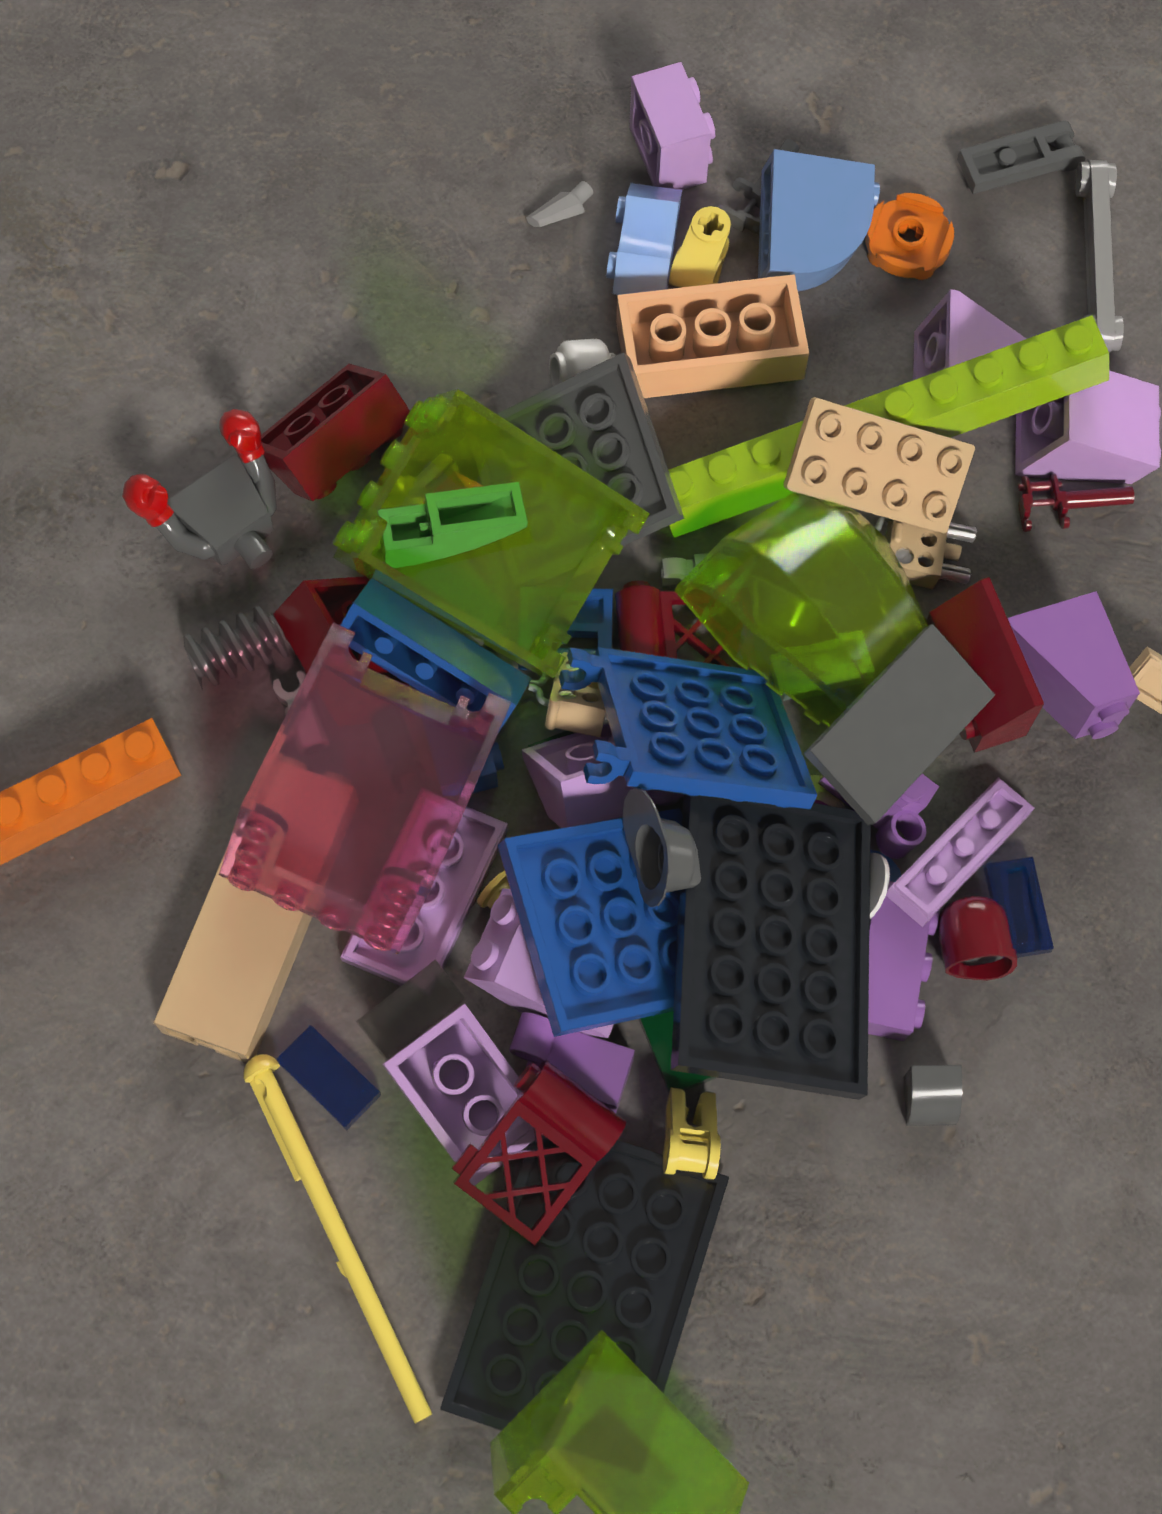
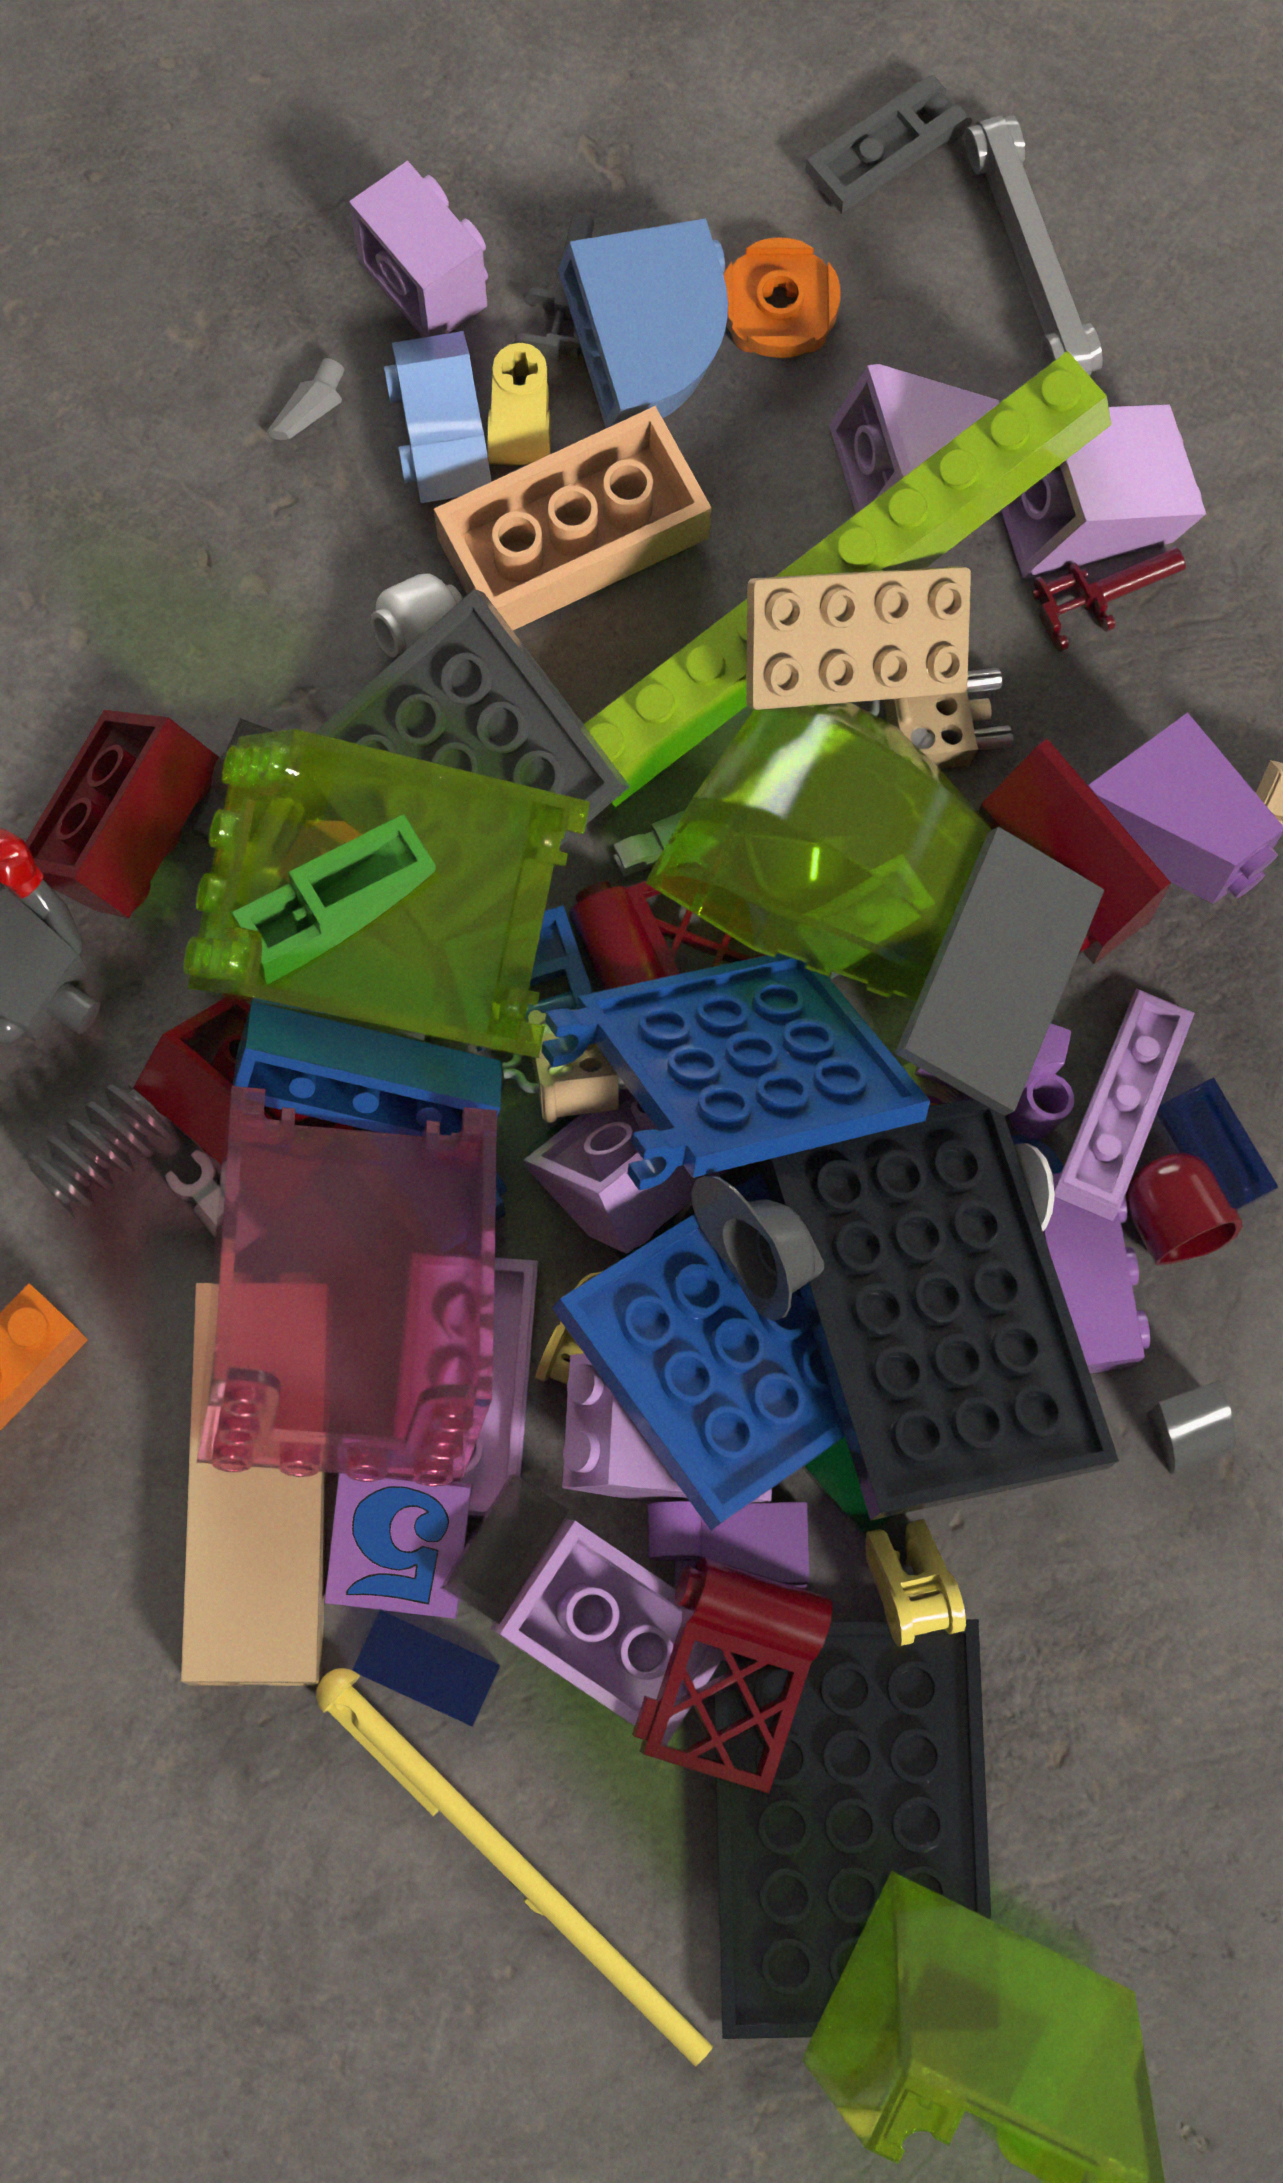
camera: 20 degrees left, 5 degrees up
(338, 982) = (396, 1544): none -> tile

